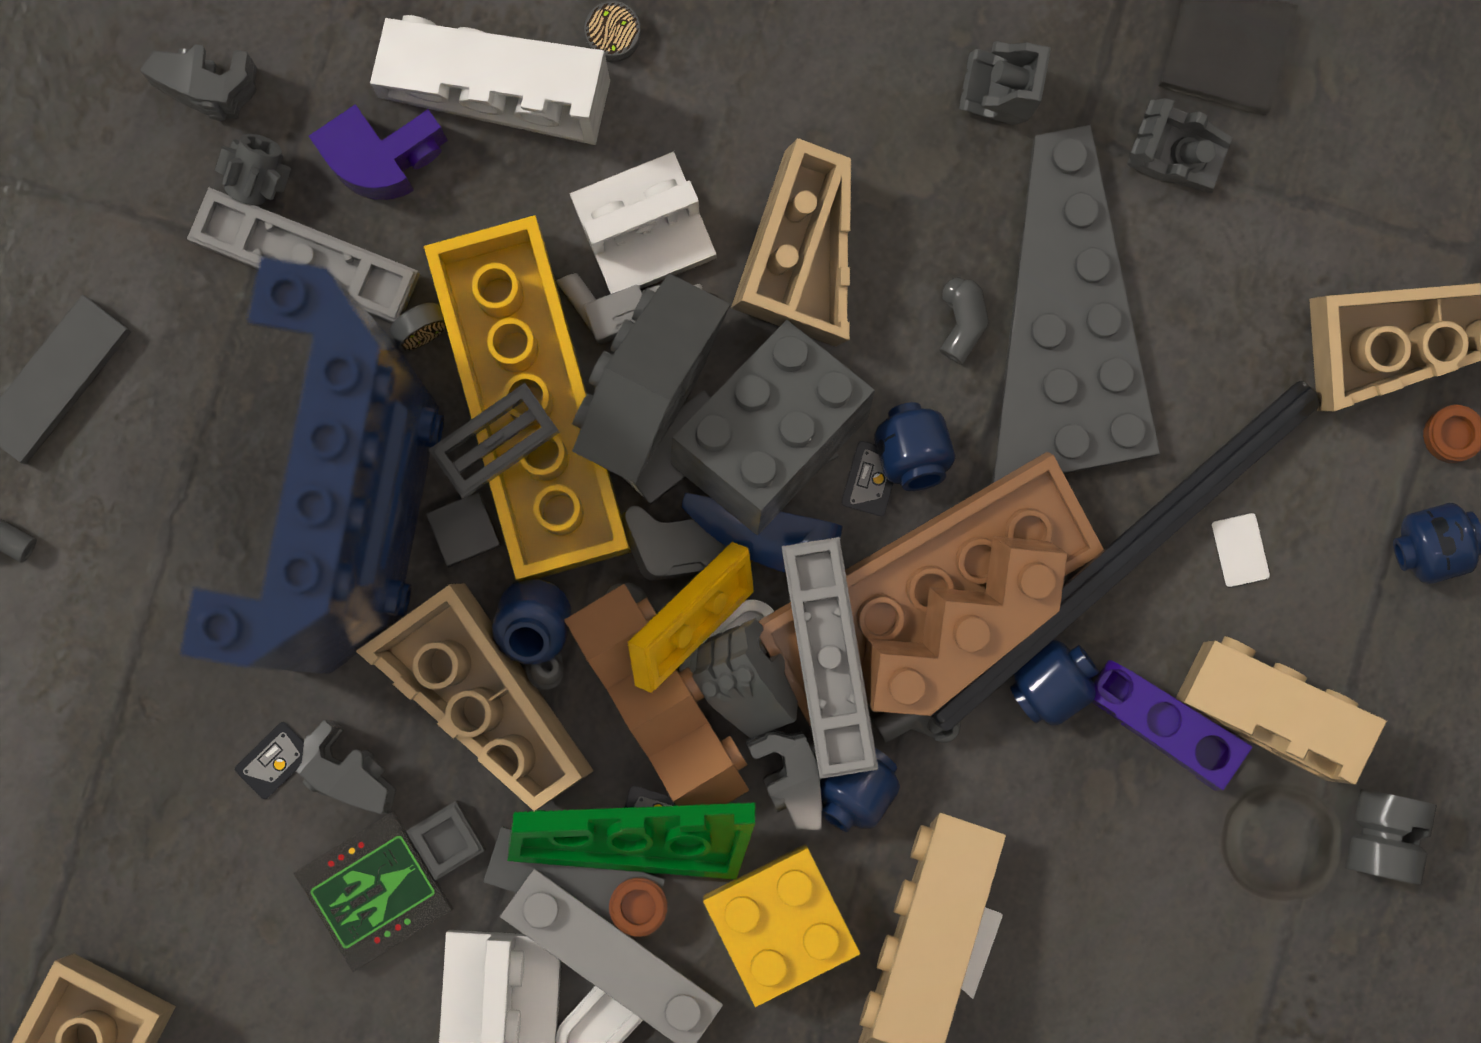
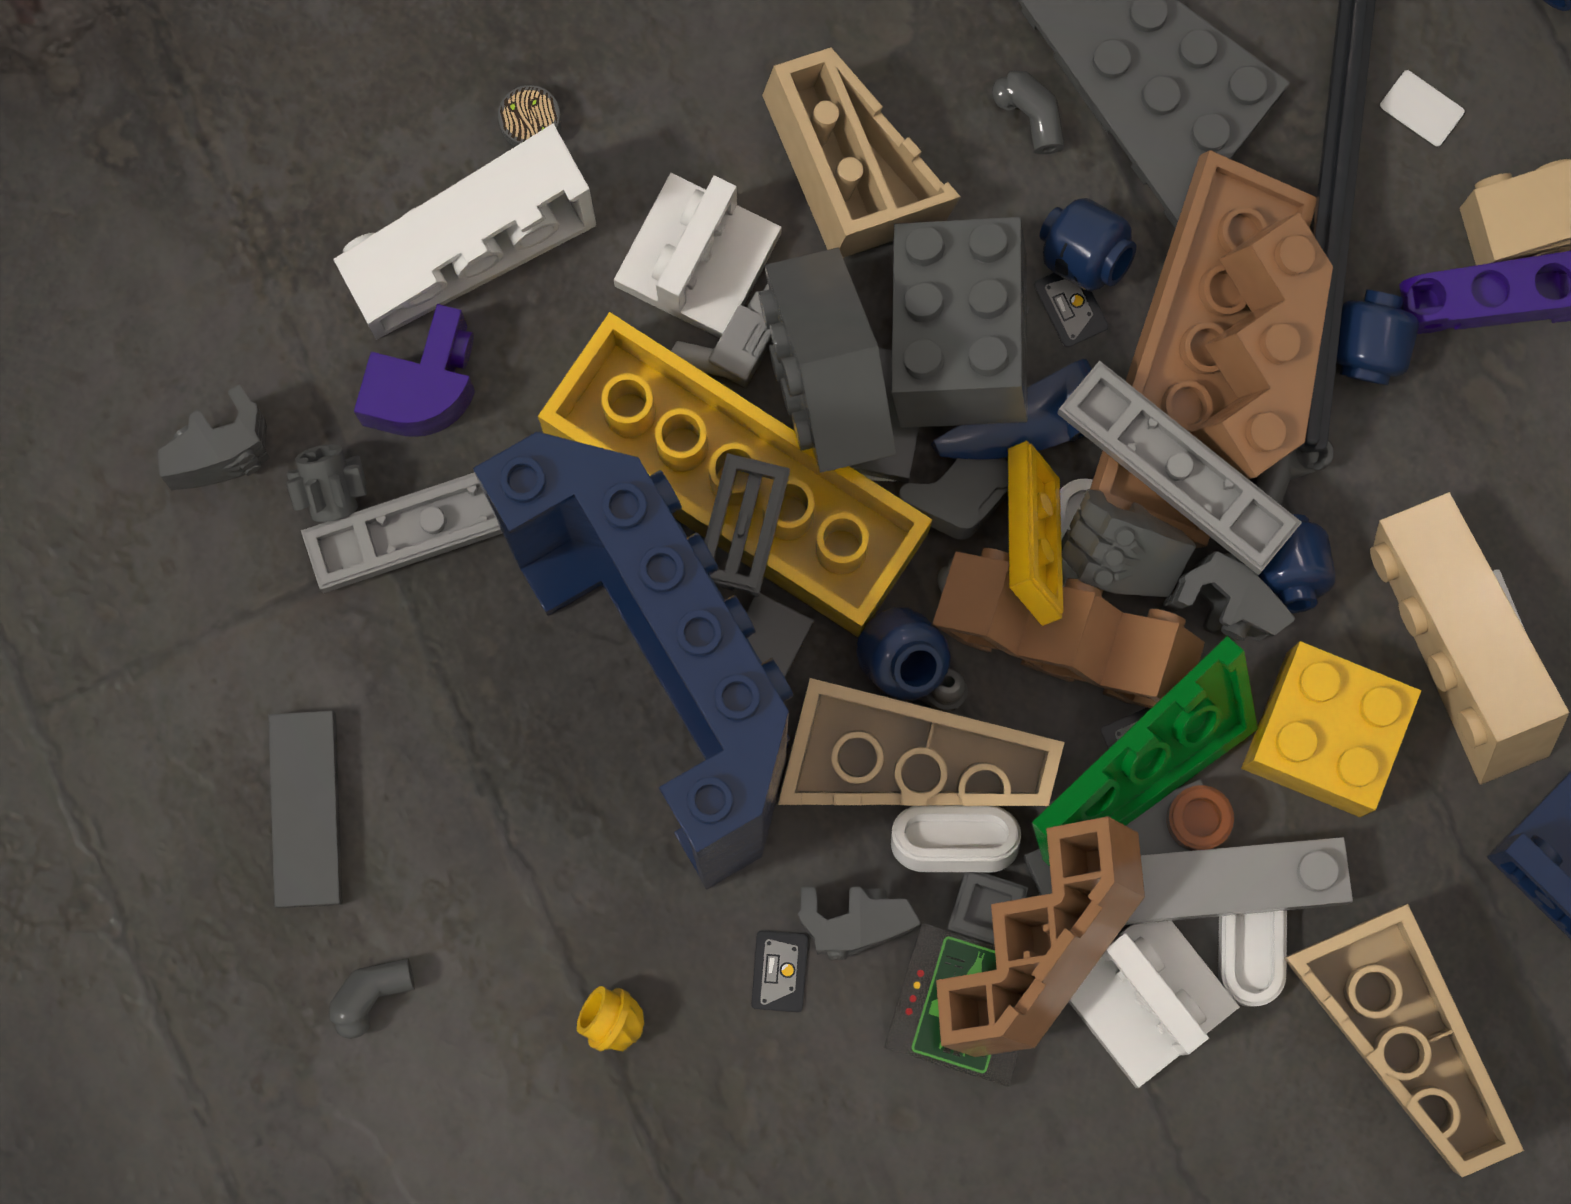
camera: 40 degrees left, 5 degrees down
(129, 696) = (610, 1019): none -> yellow plate
(446, 905) = (1046, 941): none -> medium nougat brick
(461, 778) = (955, 838): none -> white tile

